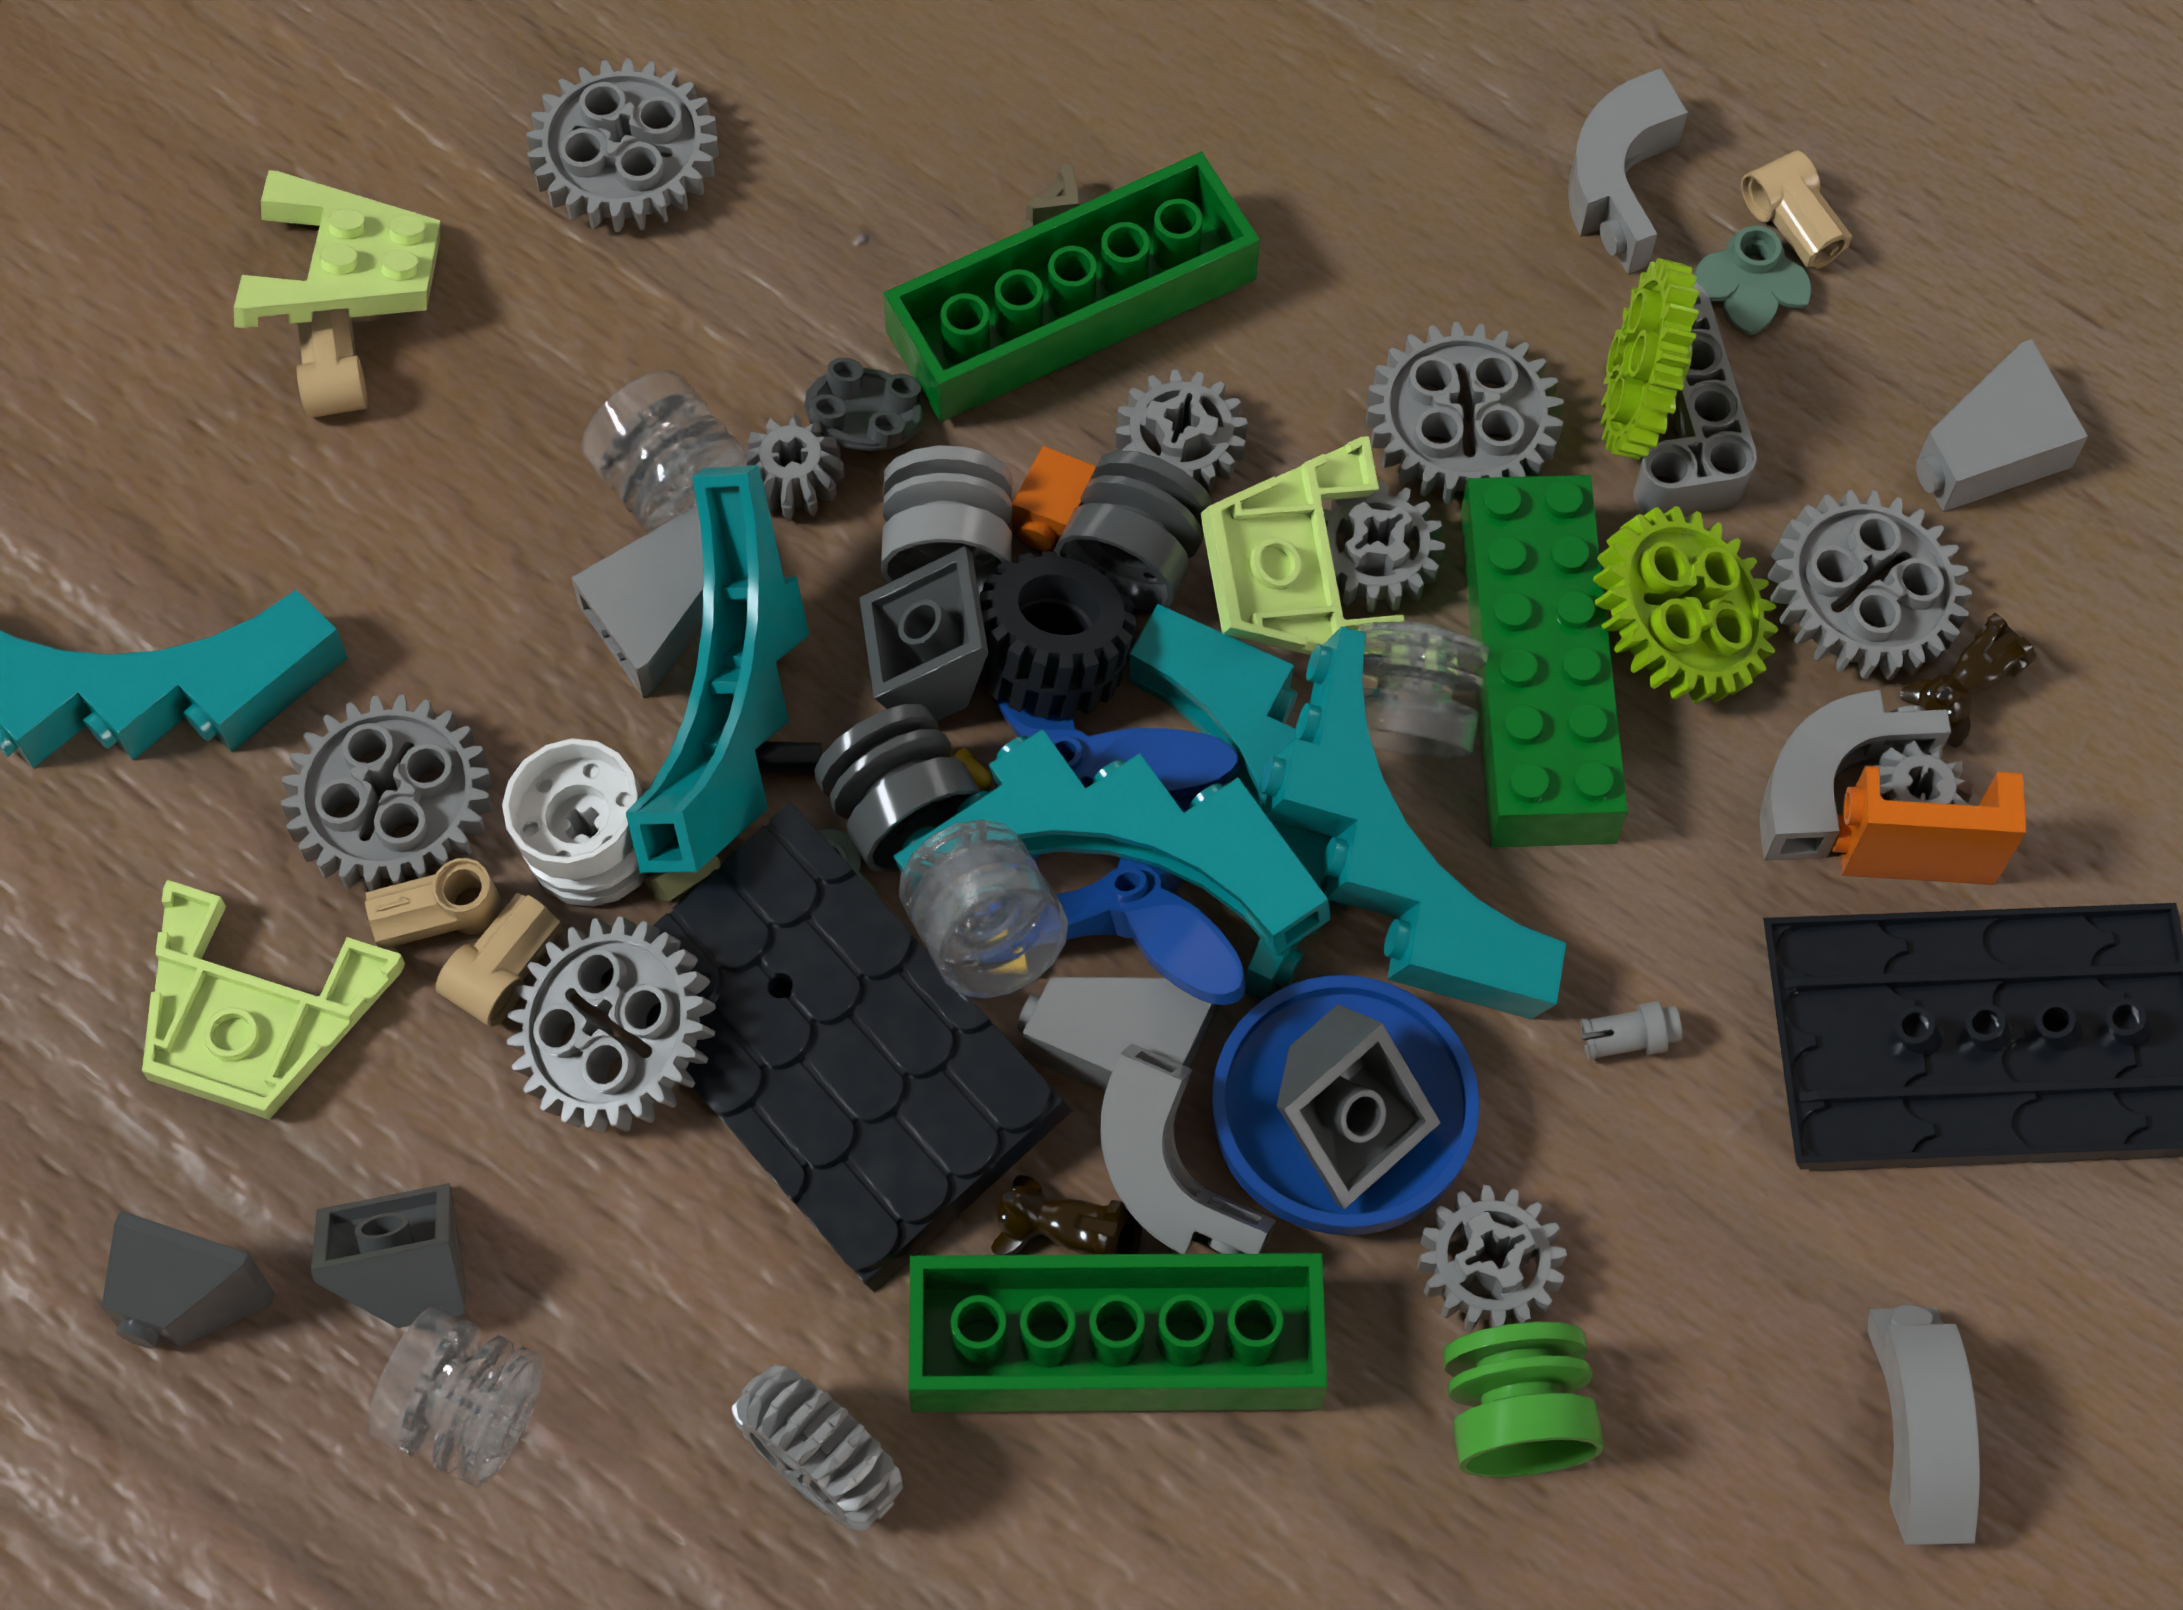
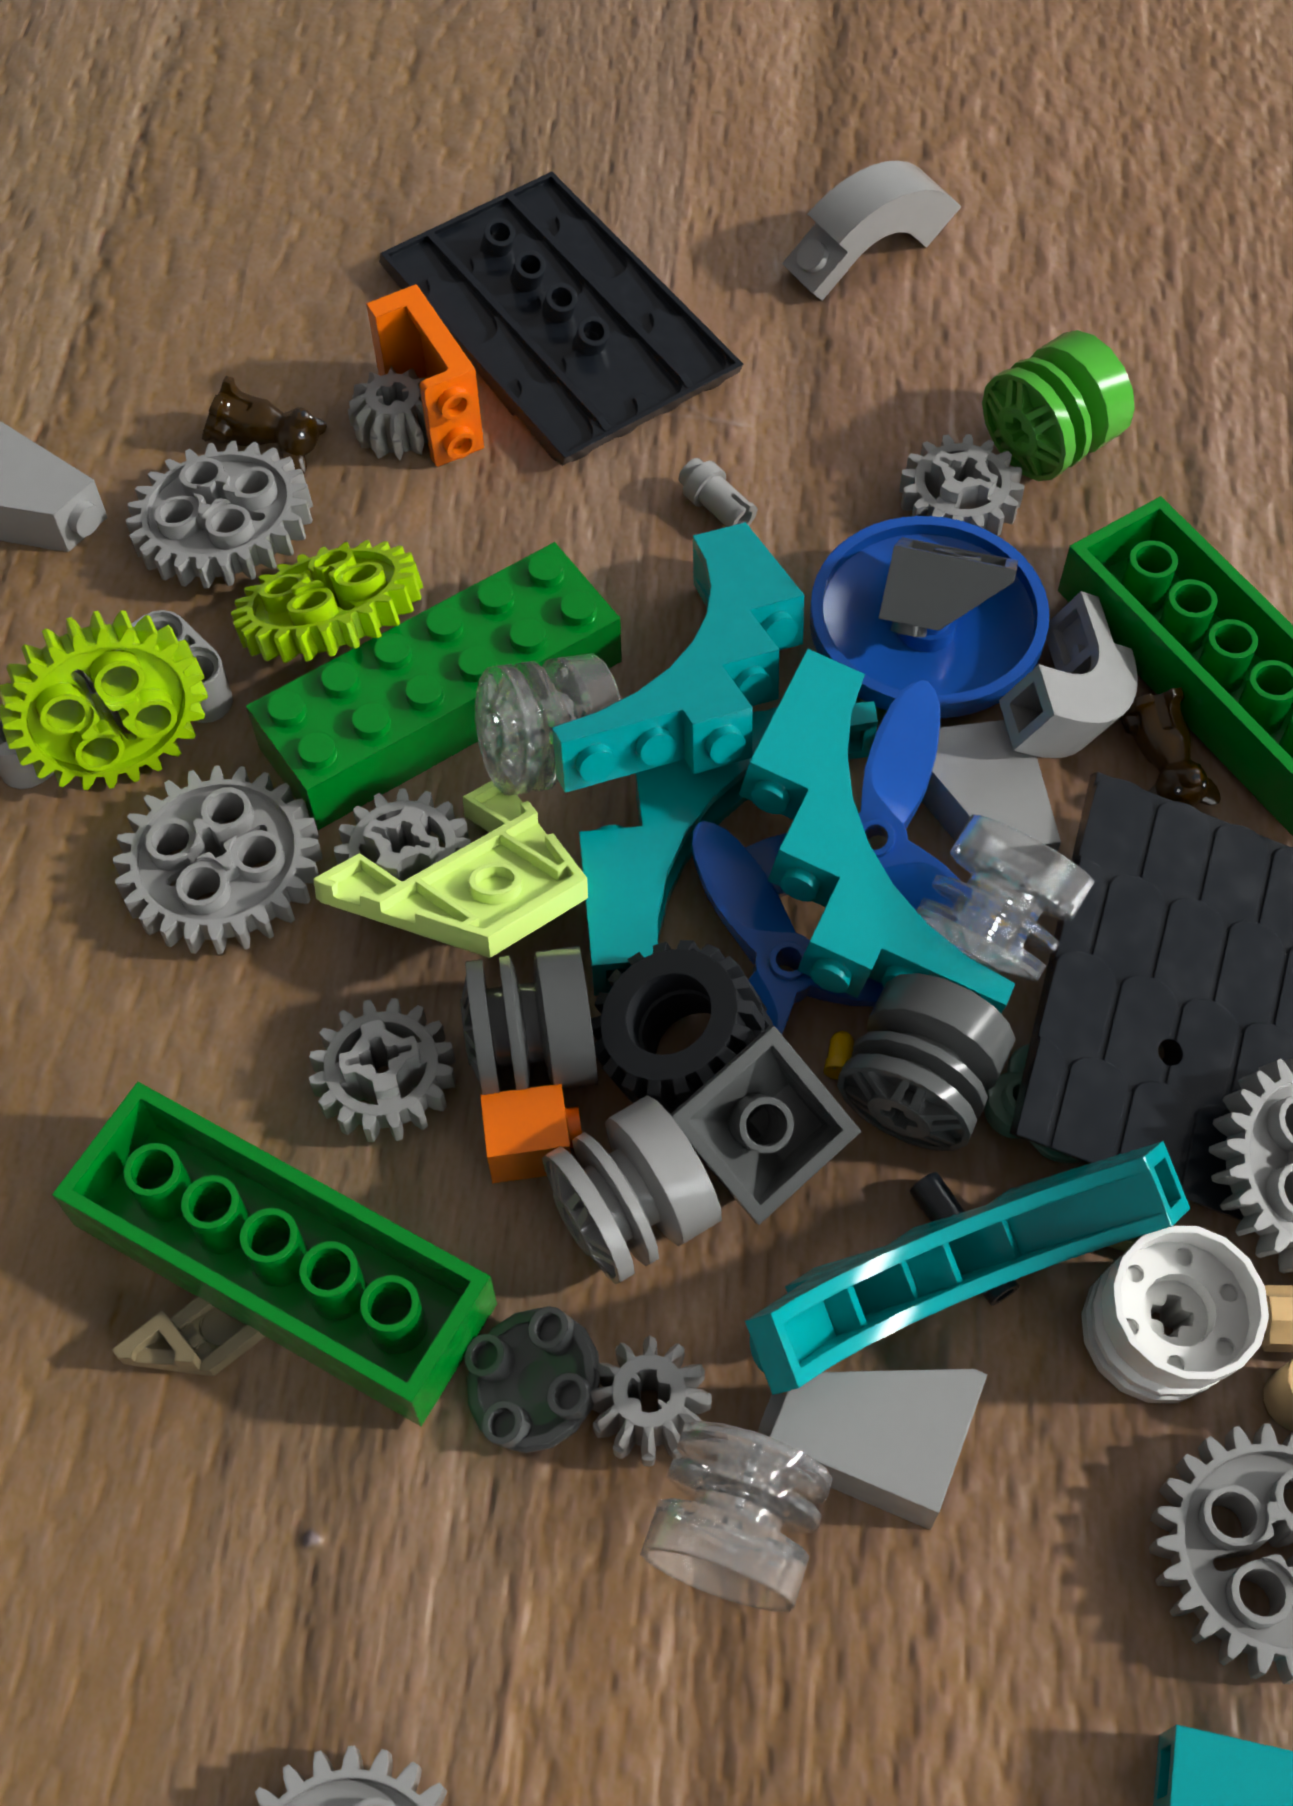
camera: 120 degrees left, 5 degrees down
(1852, 731) = (409, 481): light grey arch -> none

